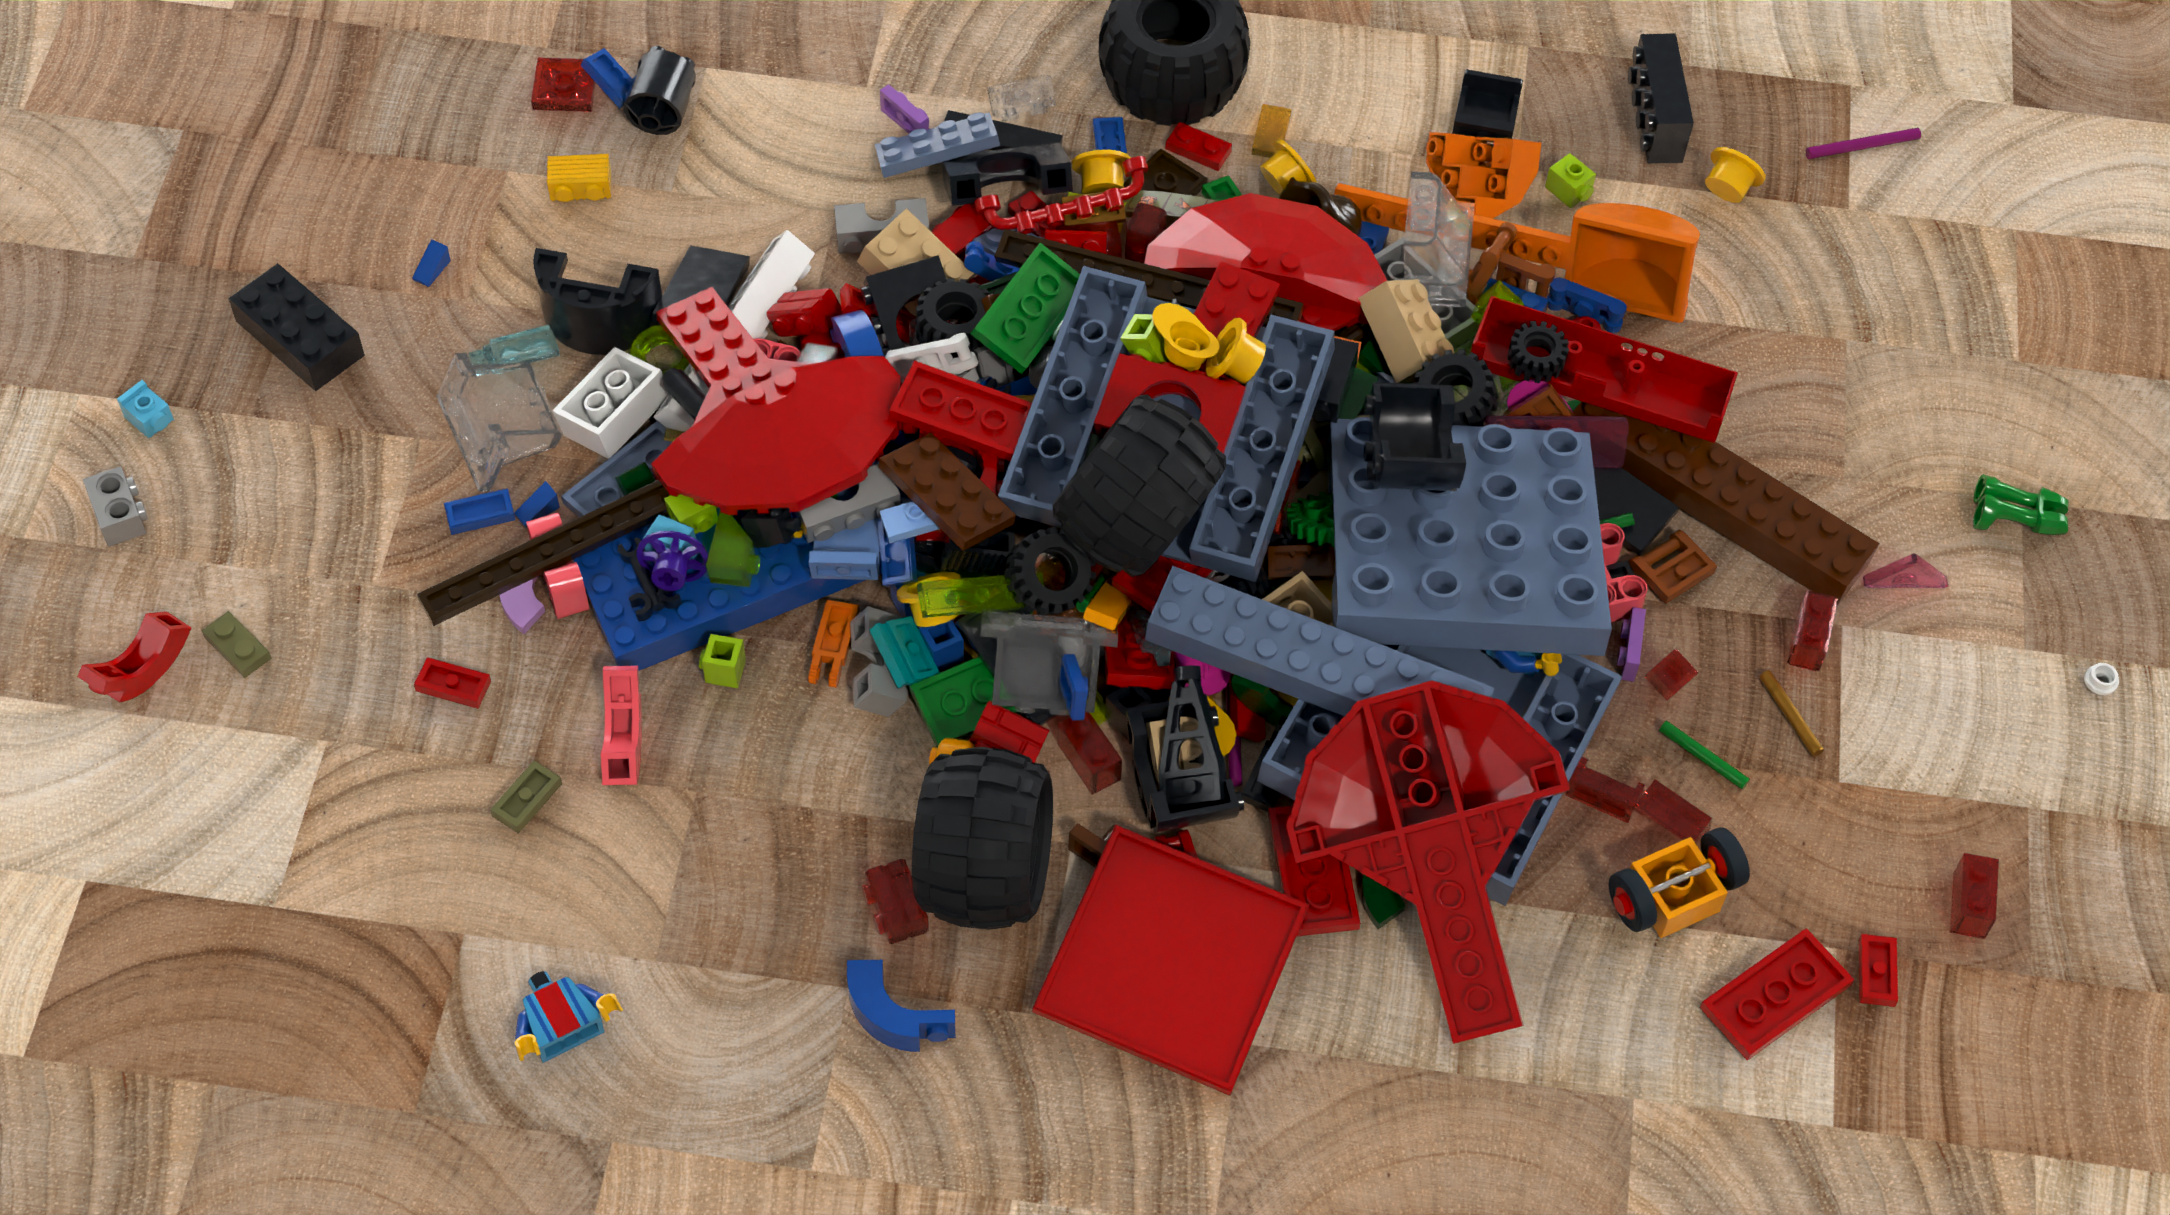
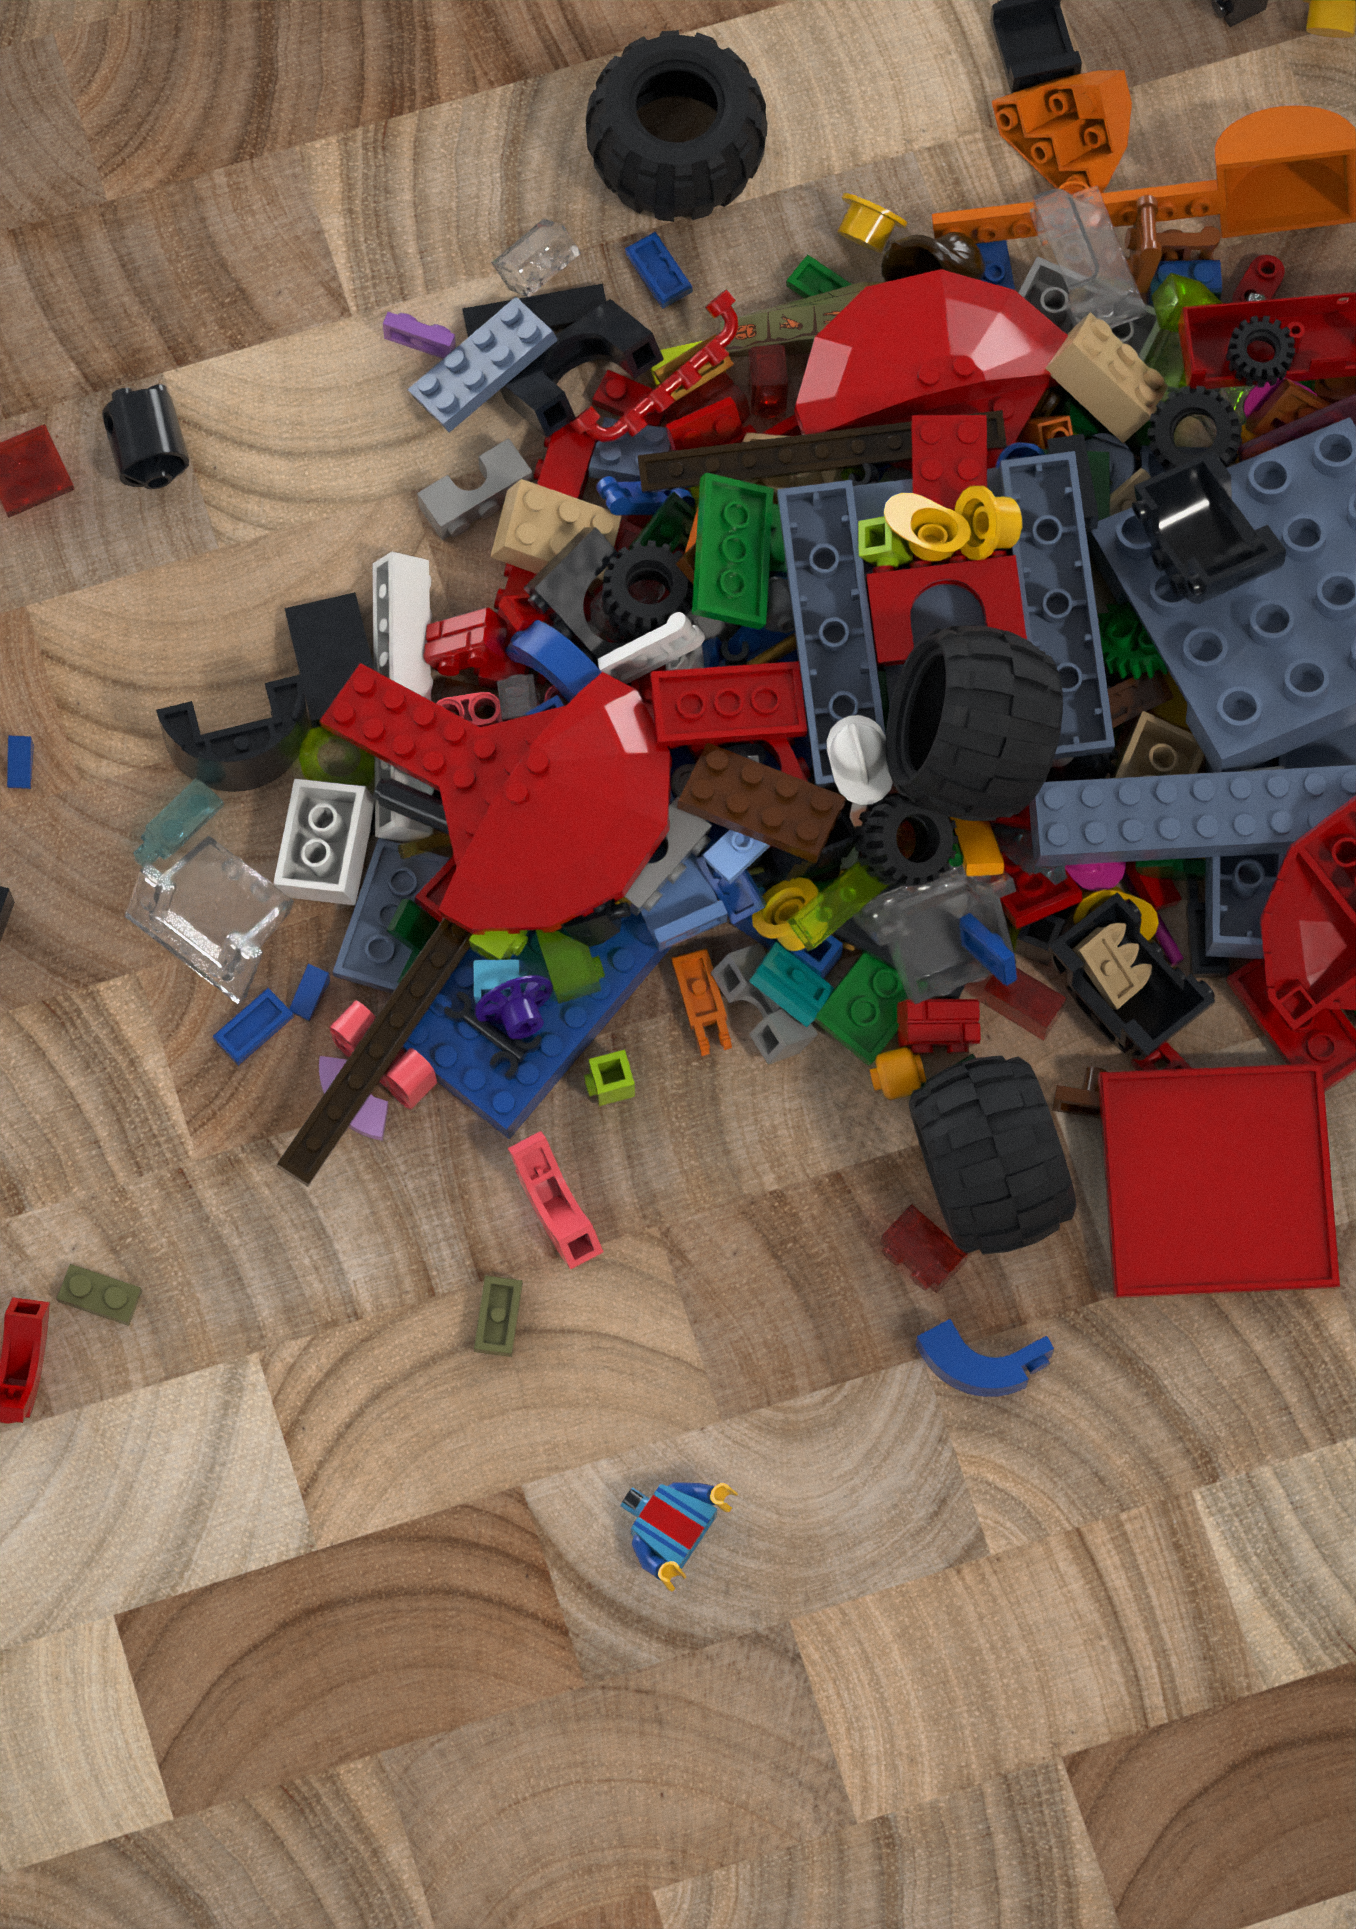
camera: 25 degrees left, 15 degrees up
(452, 682) = (348, 1231): red plate -> none
(579, 177) = (116, 582): yellow brick -> none
(608, 75) = (75, 440): blue plate -> none
(1038, 488) = (859, 759): none -> white piece
(1100, 170) = (677, 318): yellow piece -> none
(1171, 176) = (750, 281): dark brown tile -> none
(1195, 784) = (1146, 996): black plate -> none
(1198, 146) = (752, 228): red plate -> none
(1271, 126) = (819, 172): clear yellow tile -> none
(1570, 181) = (1167, 93): lime brick -> none
(1586, 302) = (1258, 241): blue plate -> none

